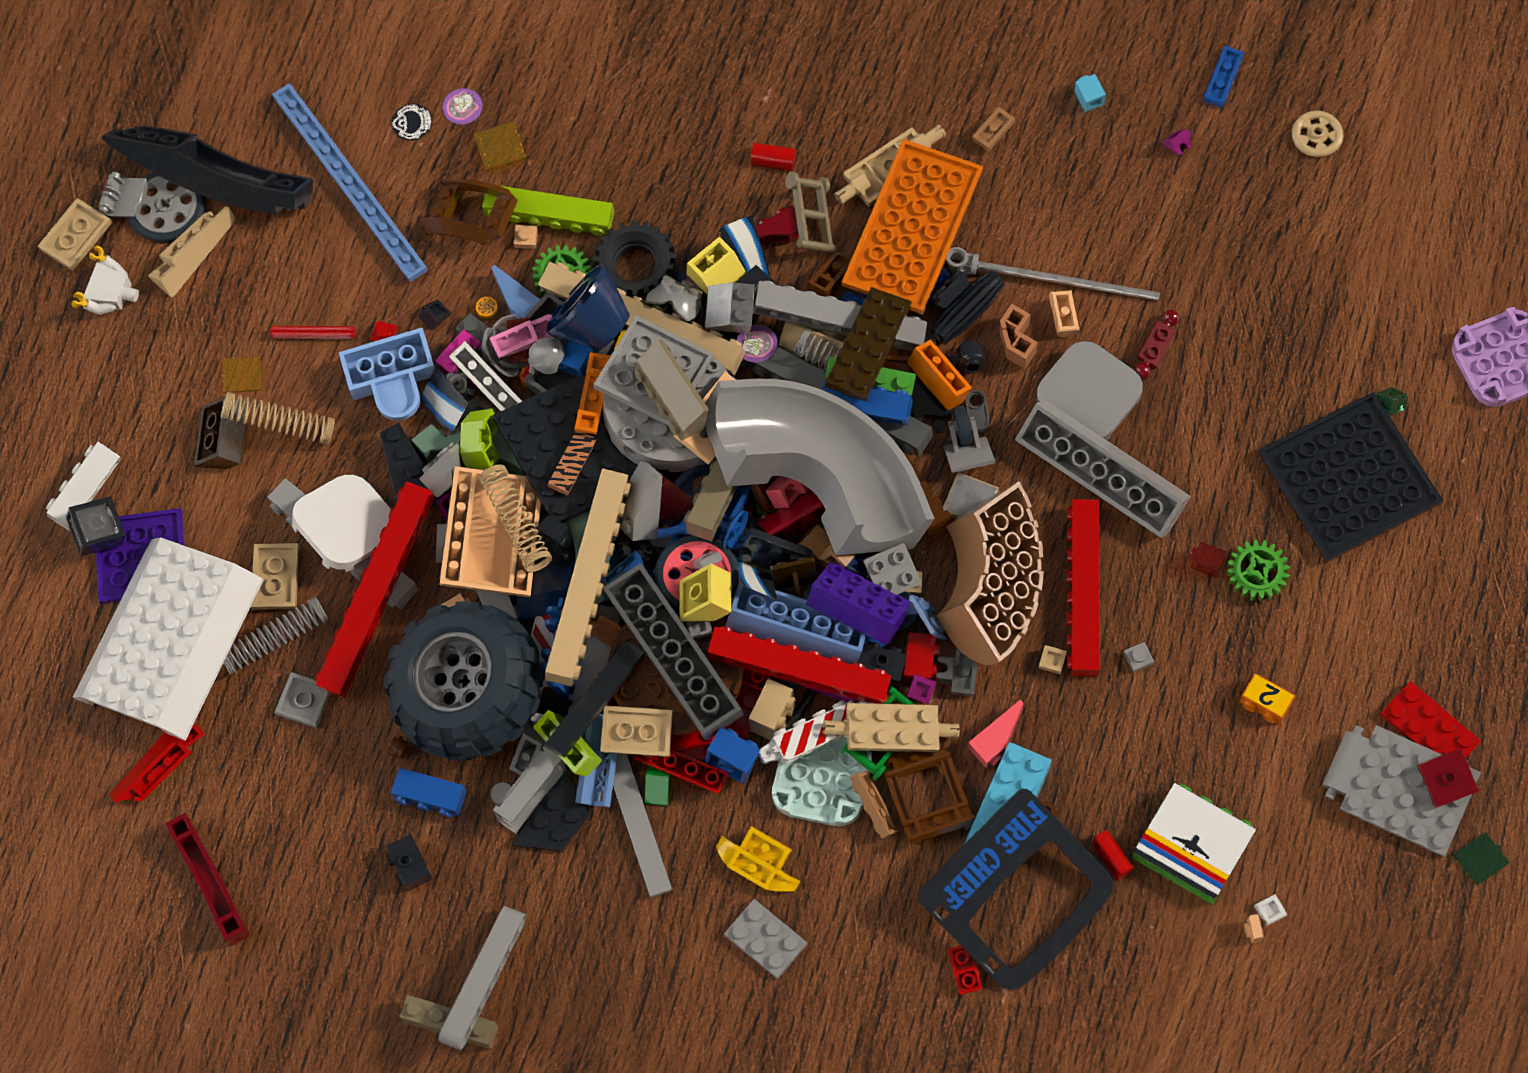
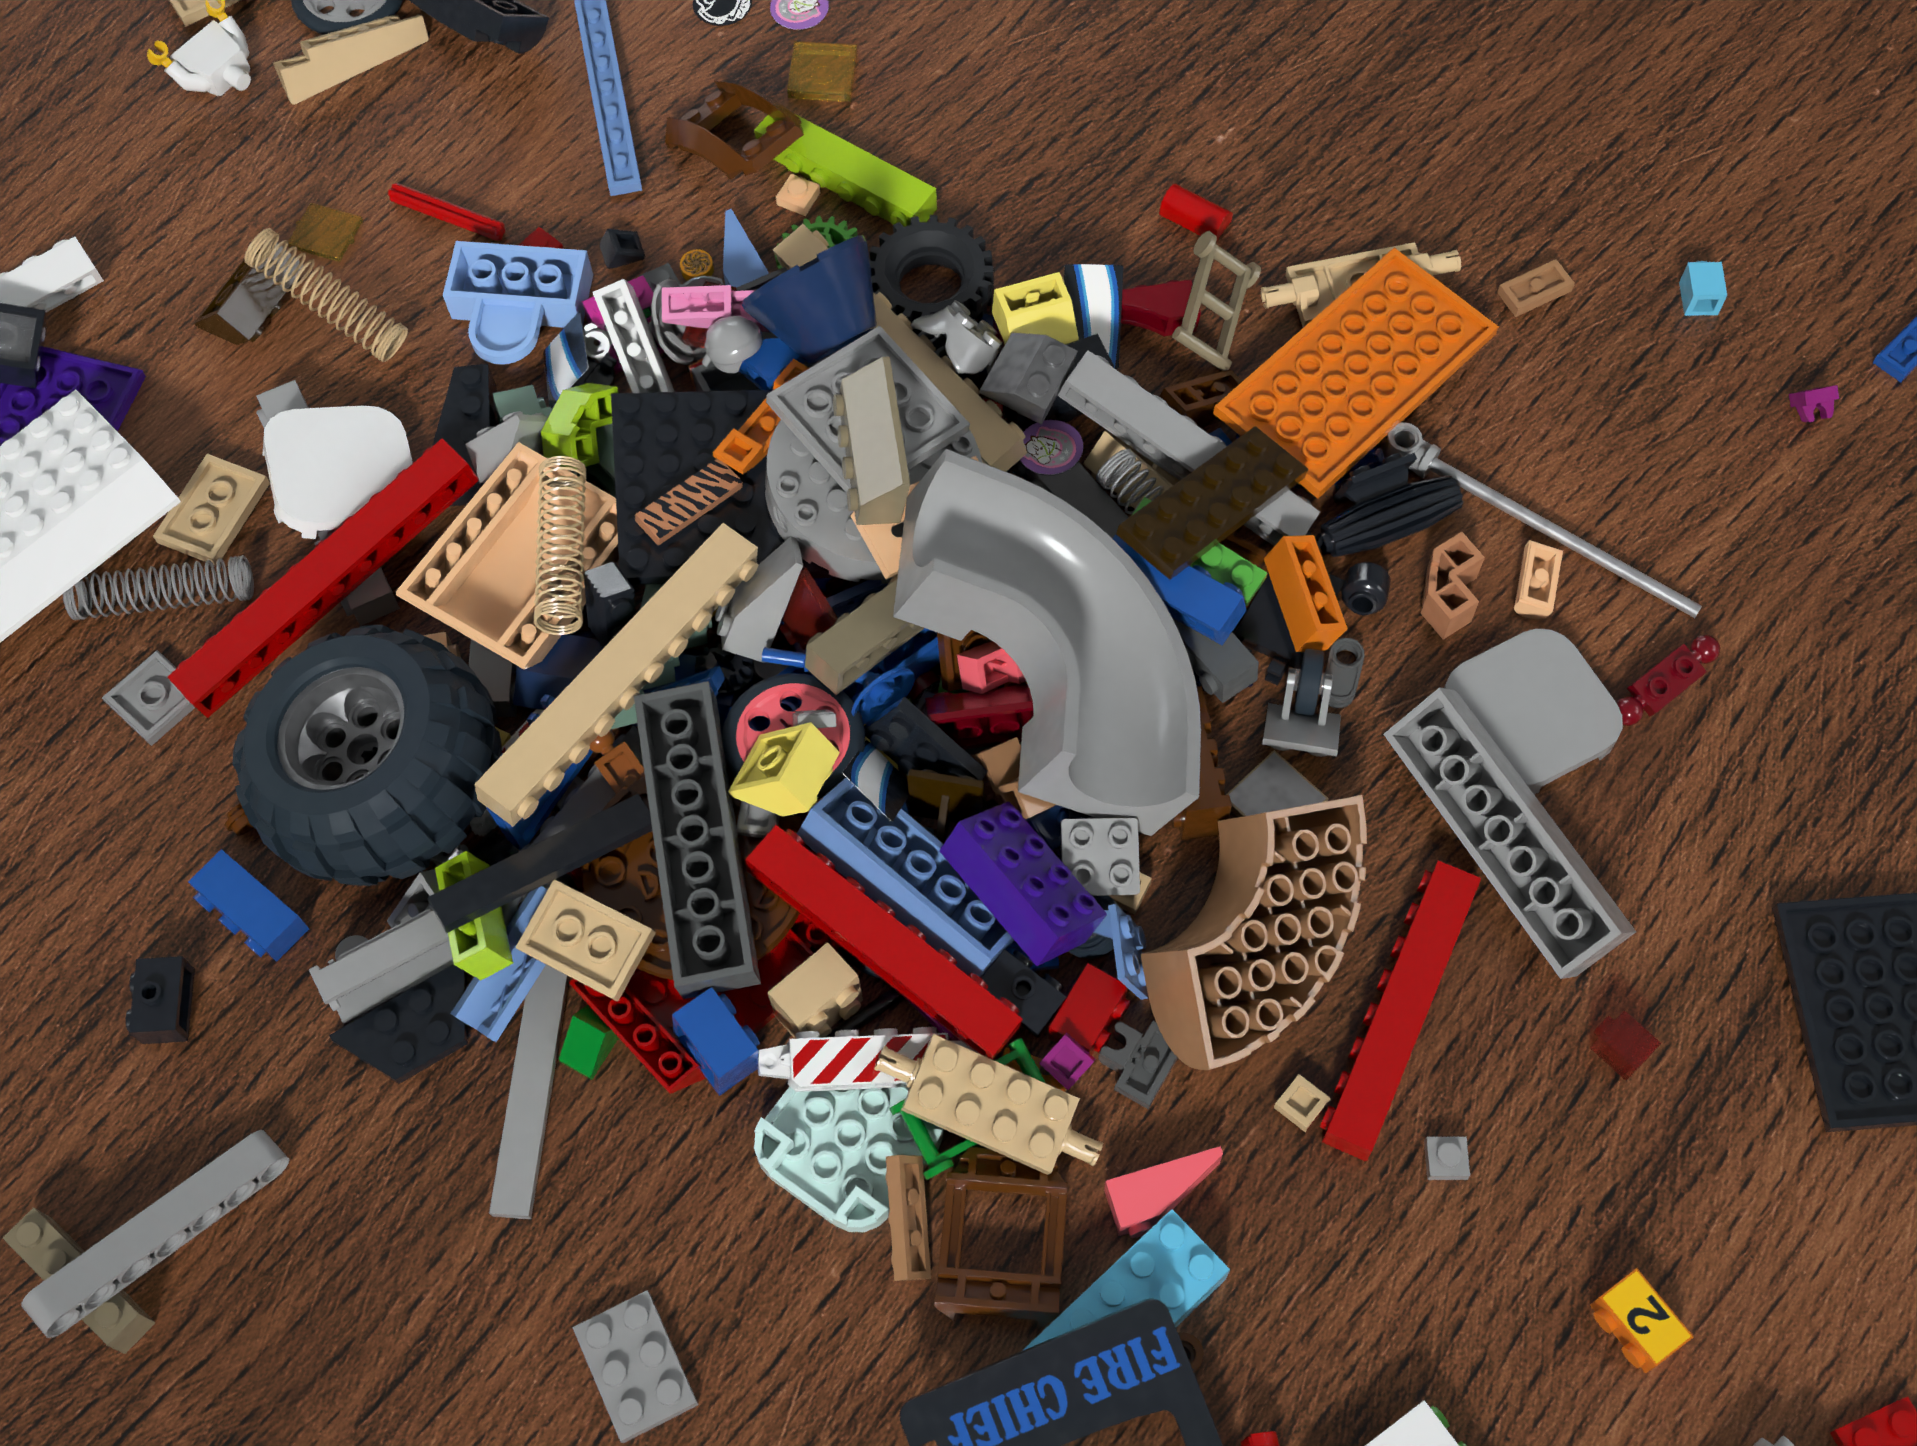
camera: 20 degrees right, 5 degrees down
(759, 860) = (685, 1231): yellow plate -> none
(1263, 586) = (1703, 1126): bright green gear -> none

